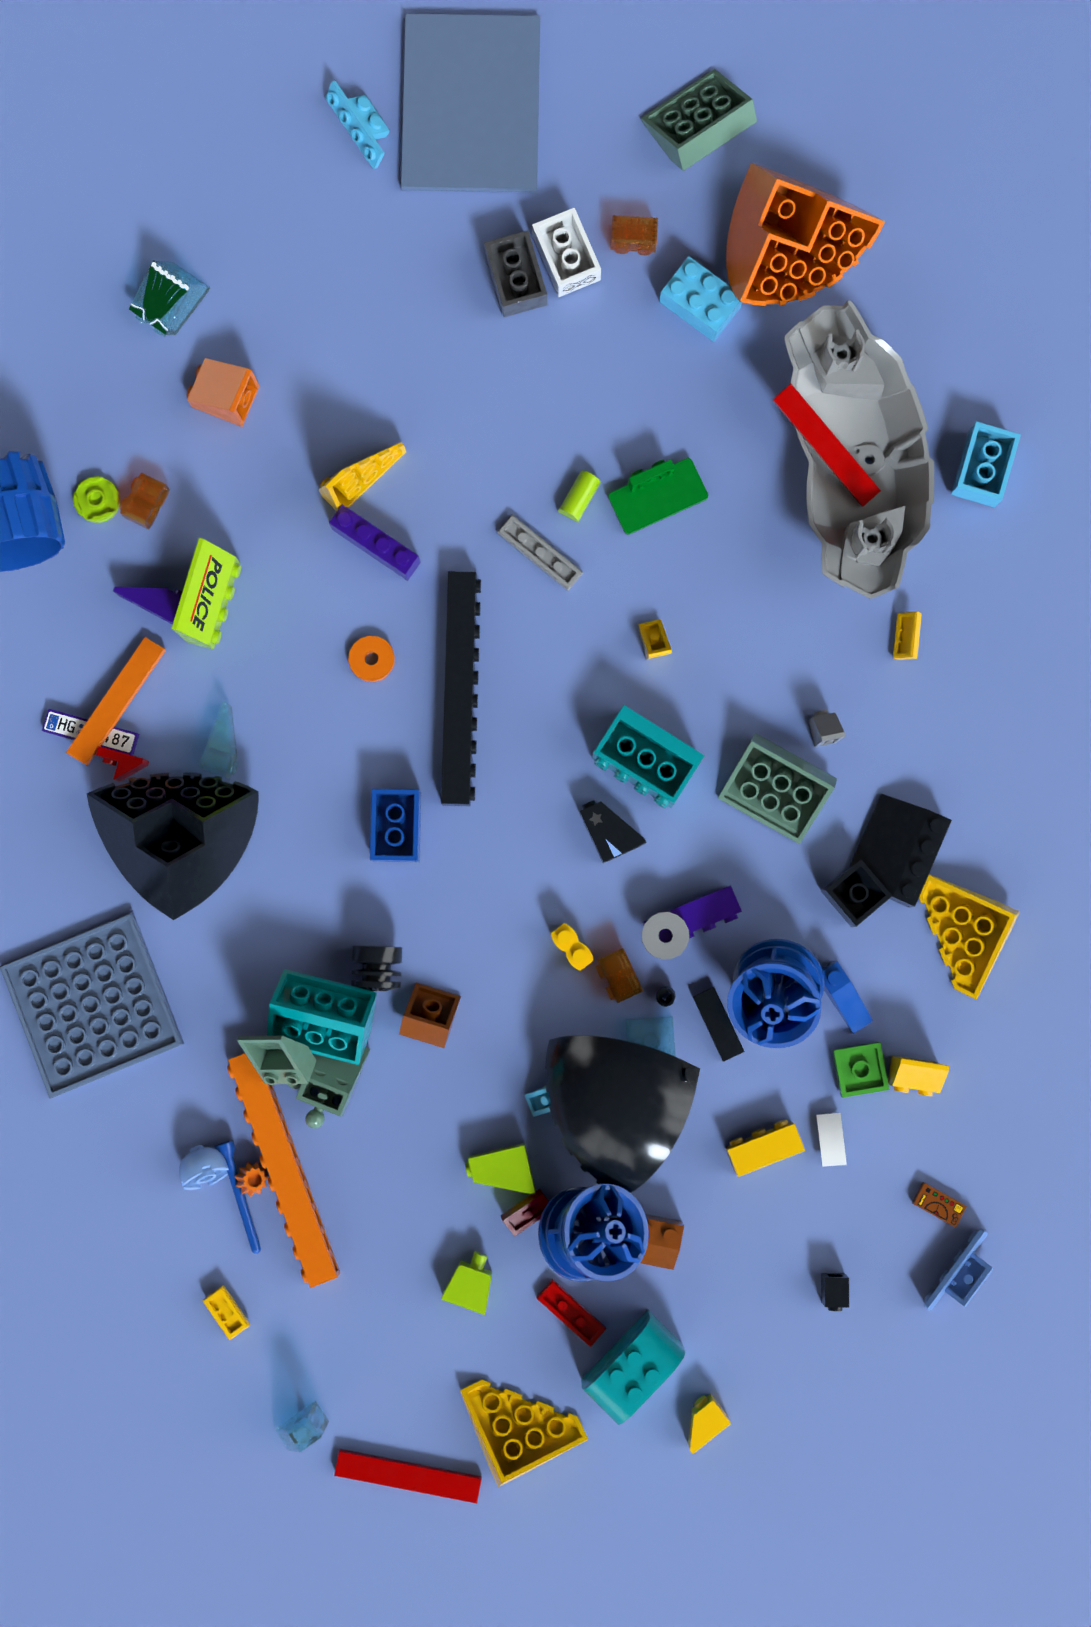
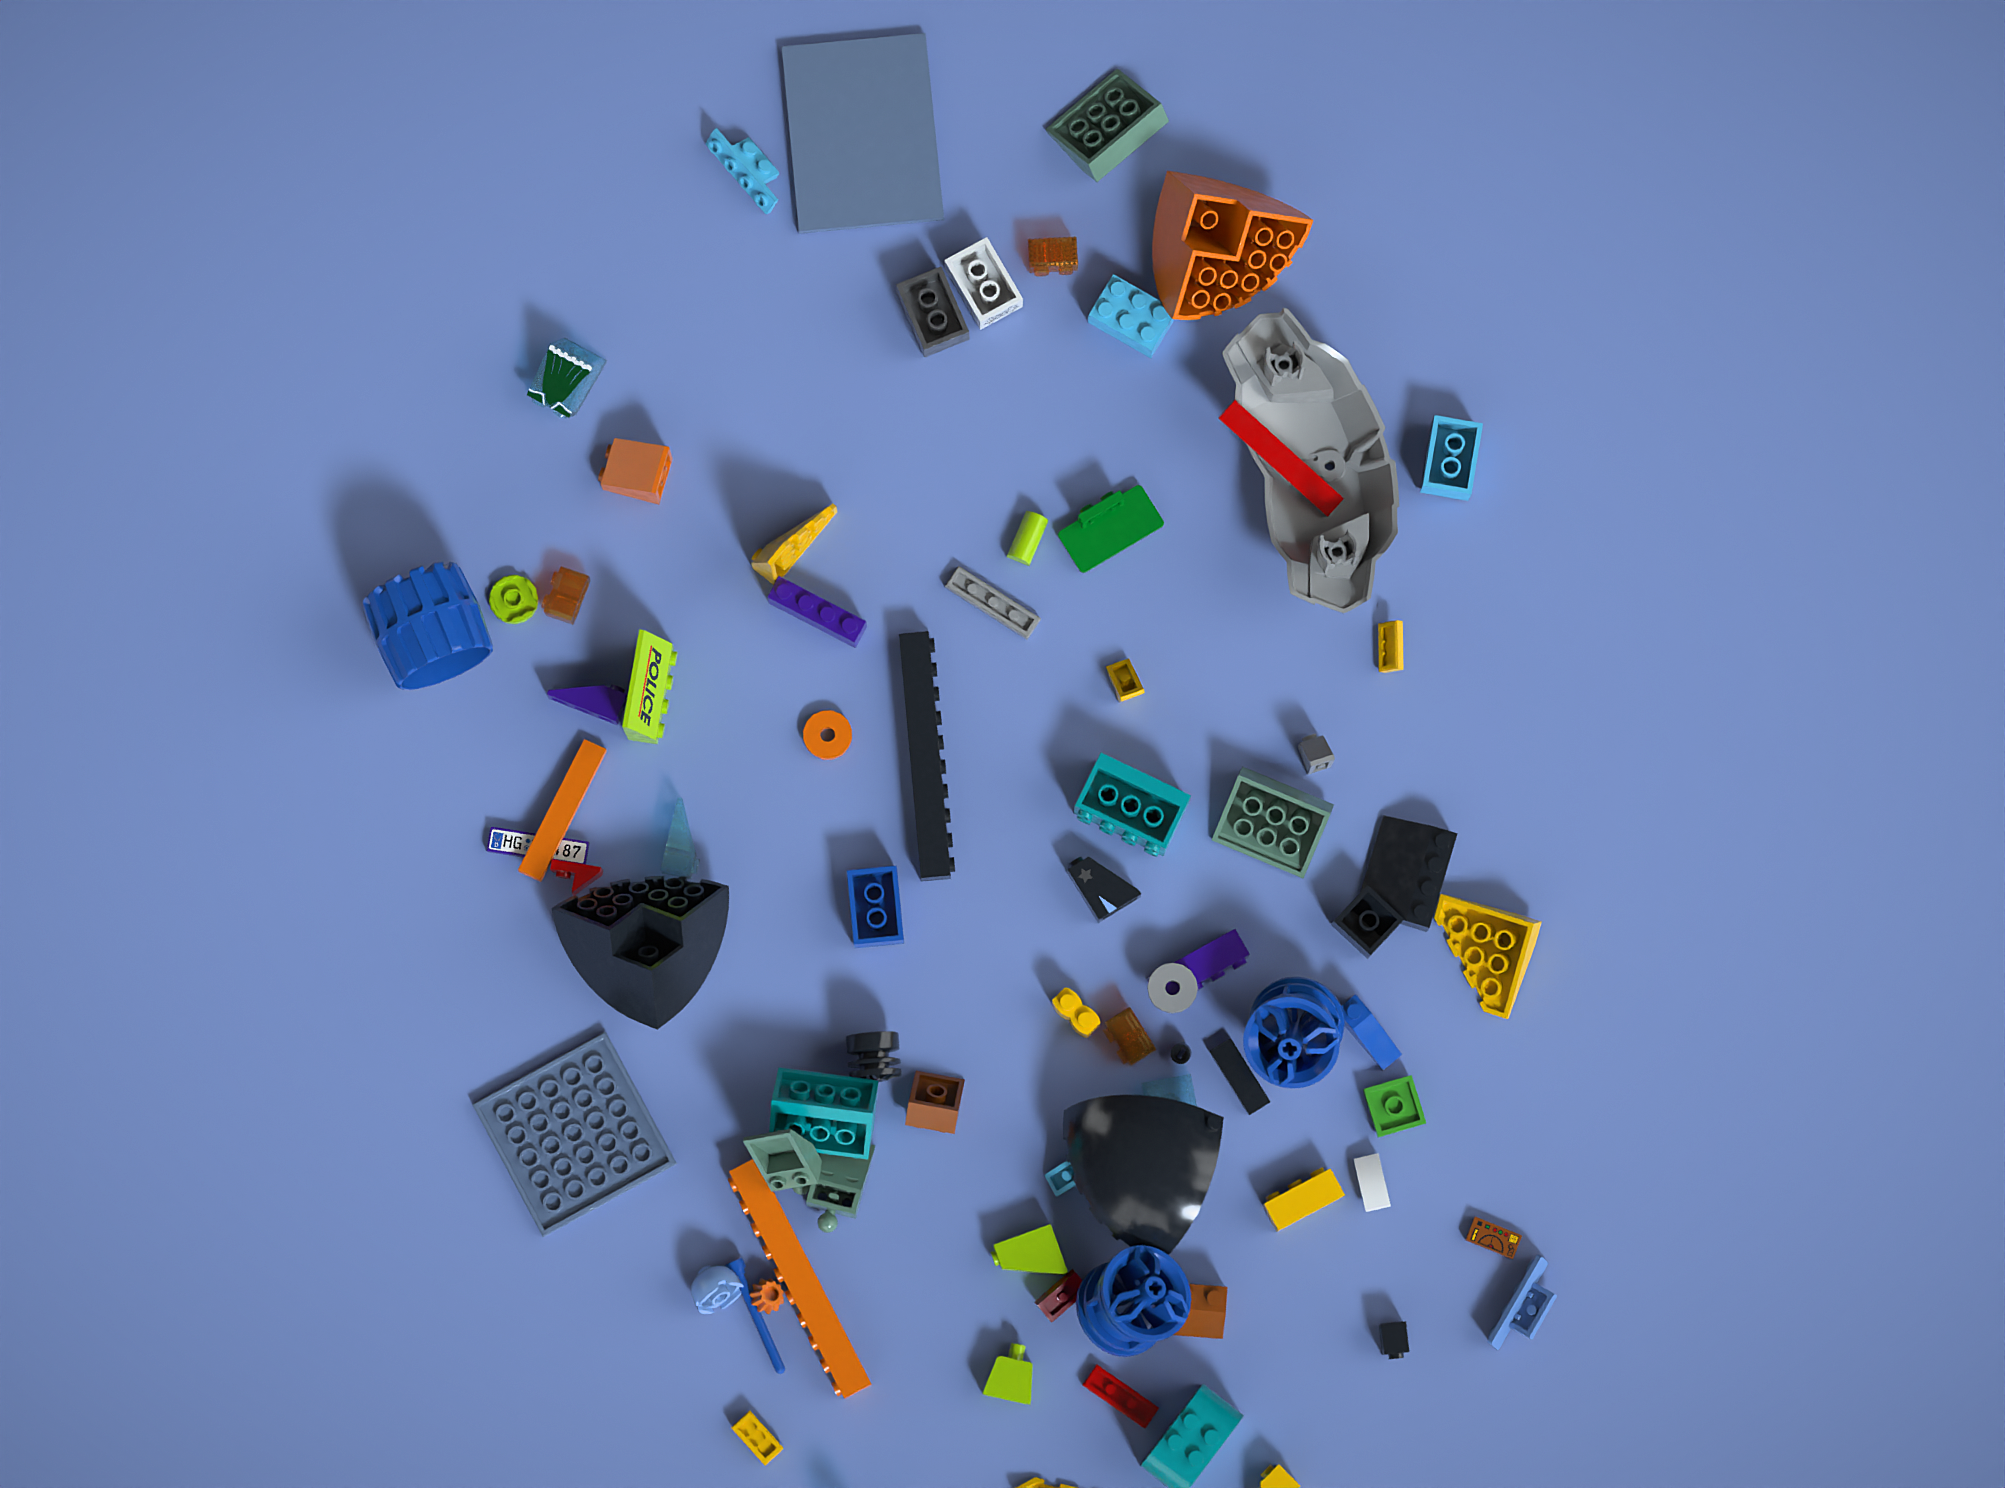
camera: 10 degrees left, 5 degrees down
(917, 1074) = (1453, 1103): yellow slope -> none

